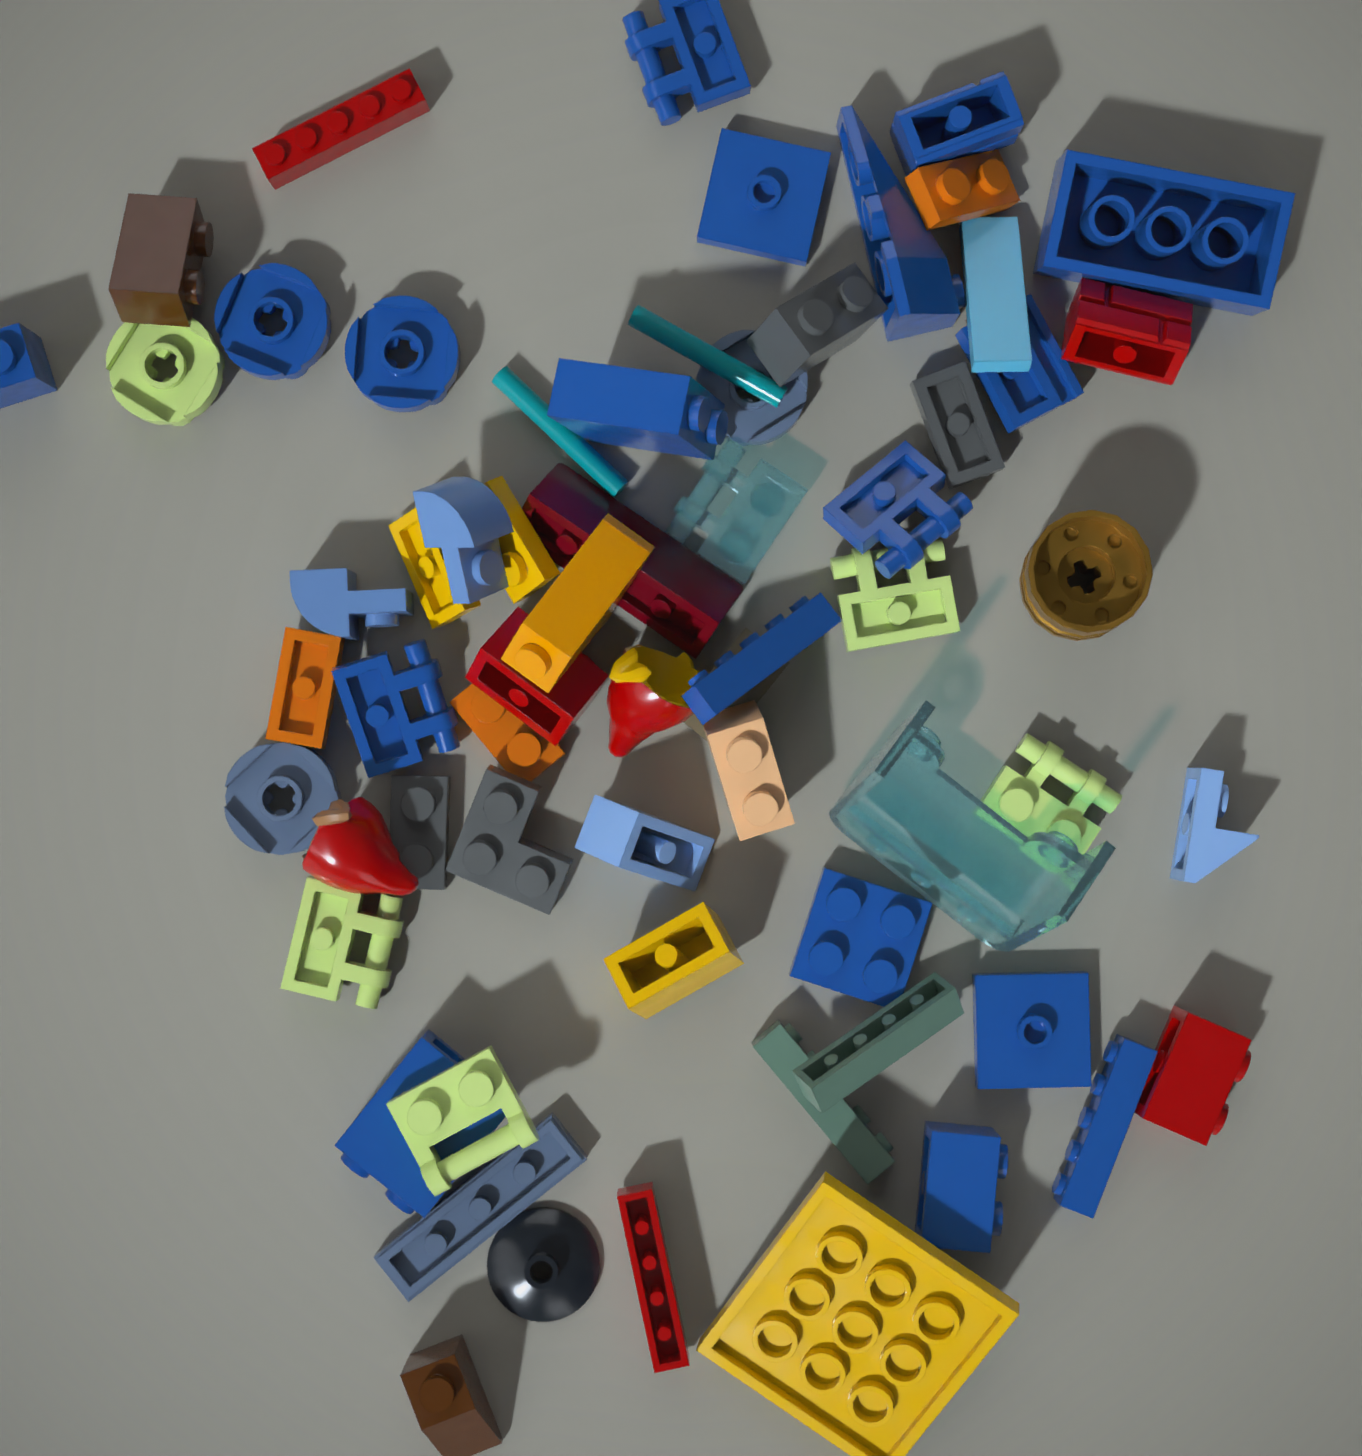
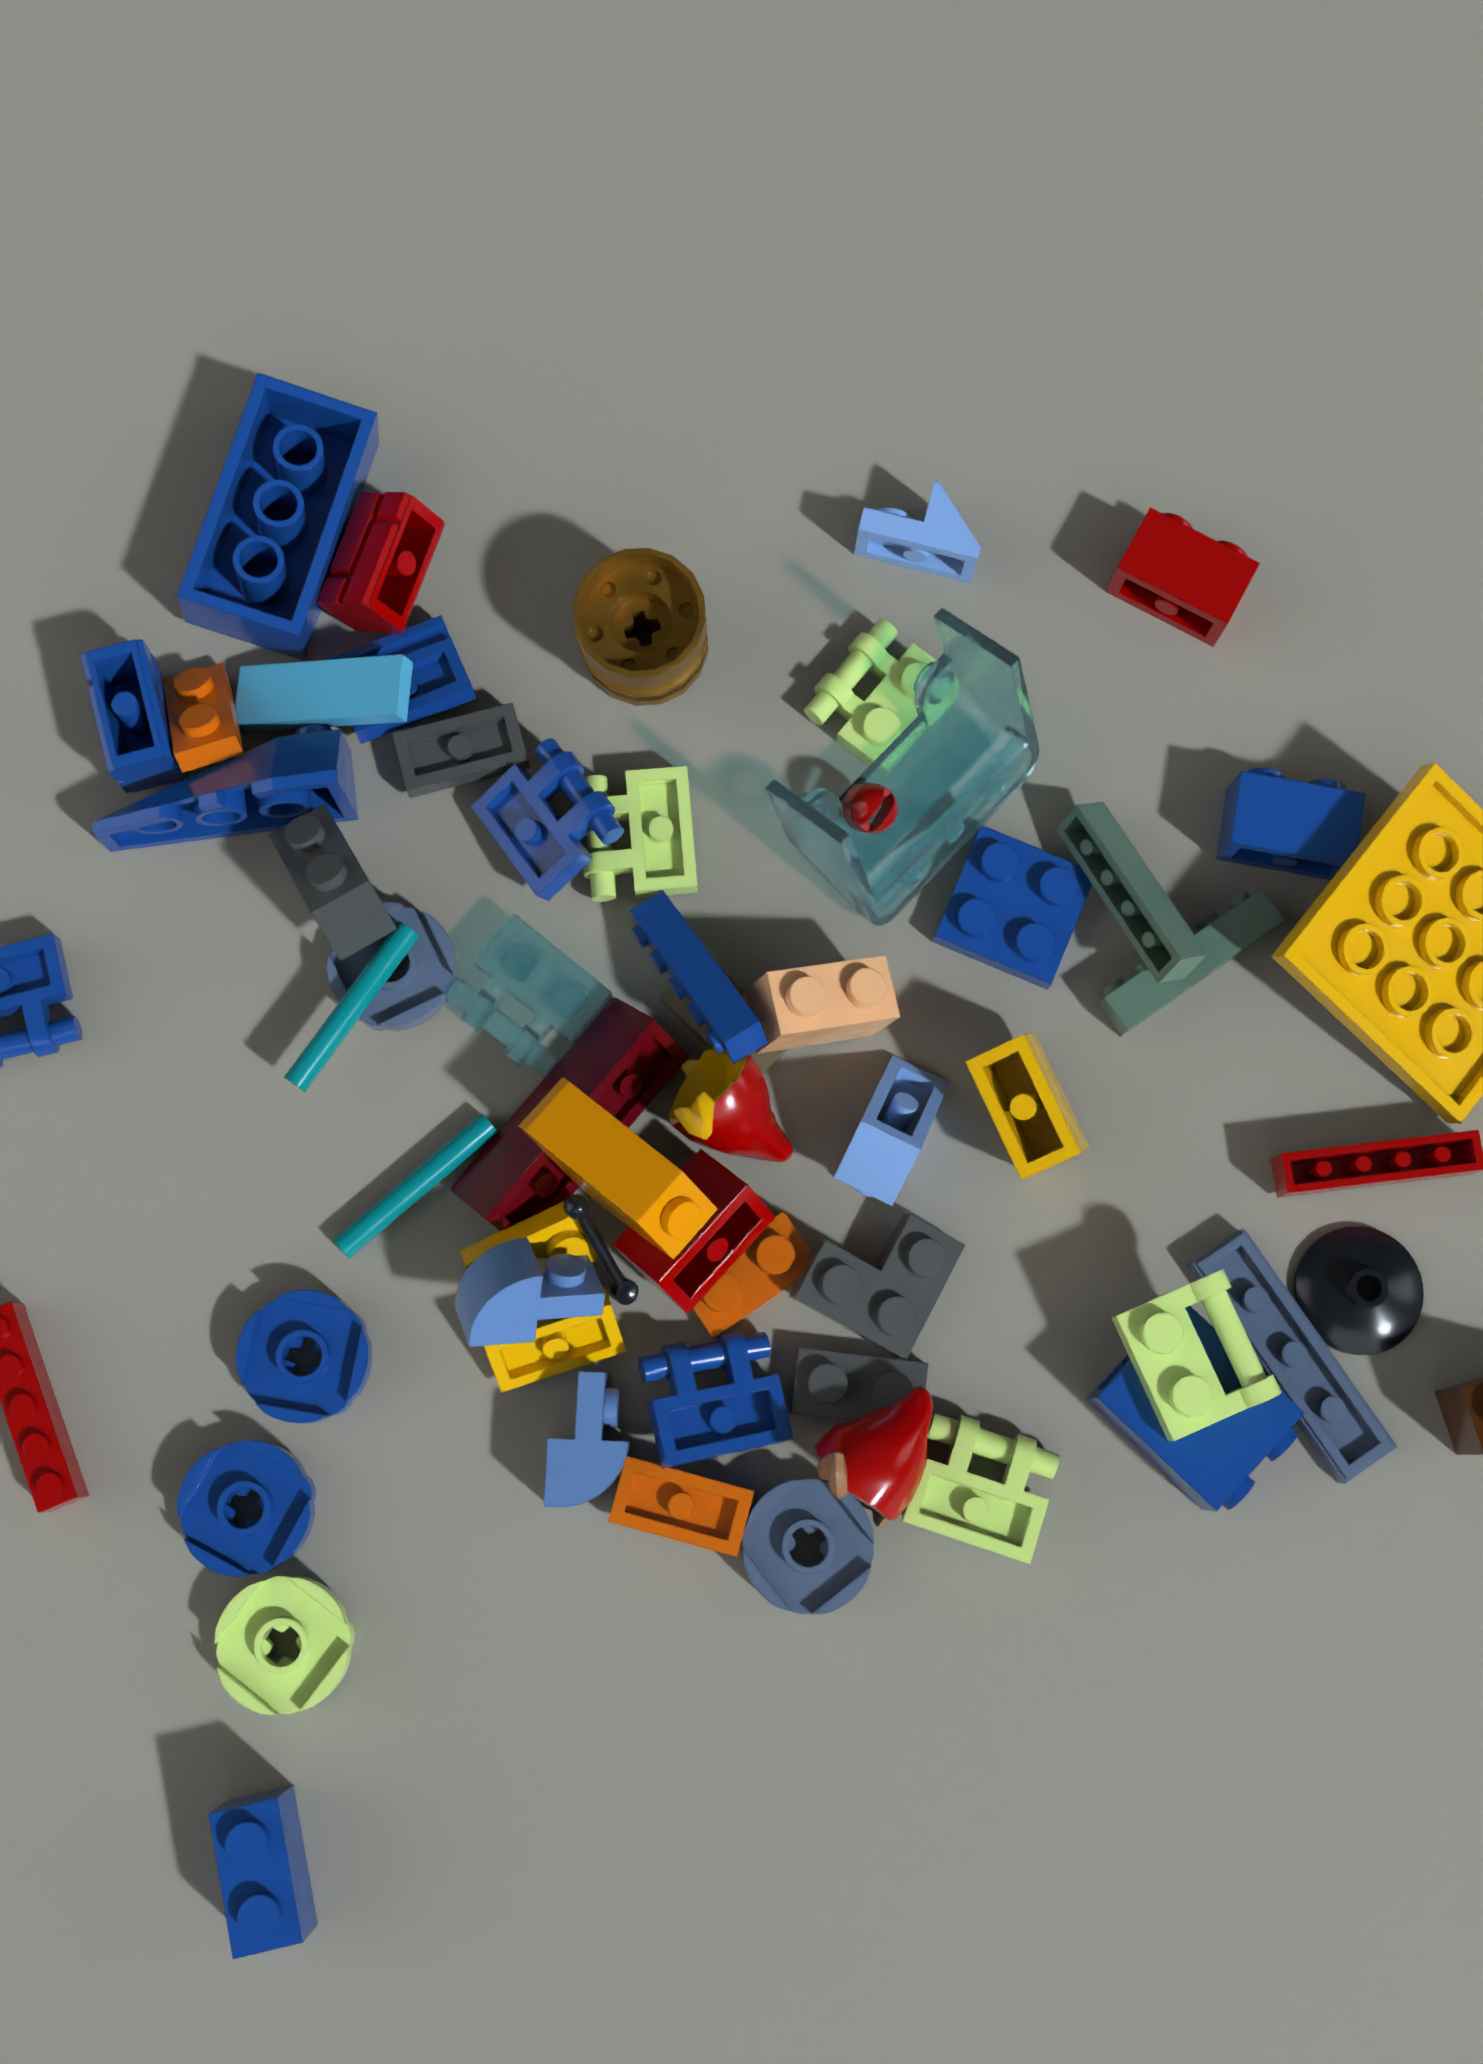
camera: 90 degrees left, 10 degrees down
(160, 260) = (155, 1633): reddish brown brick -> none
(486, 620) = (622, 1288): none -> black hinge
(637, 409) = (403, 1082): blue brick -> none
(763, 197) = (179, 935): blue plate -> none
(936, 793) = (863, 802): none -> red hinge
(1031, 1030) = (1124, 736): blue plate -> none
(1103, 1125) = (1231, 671): blue piece -> none

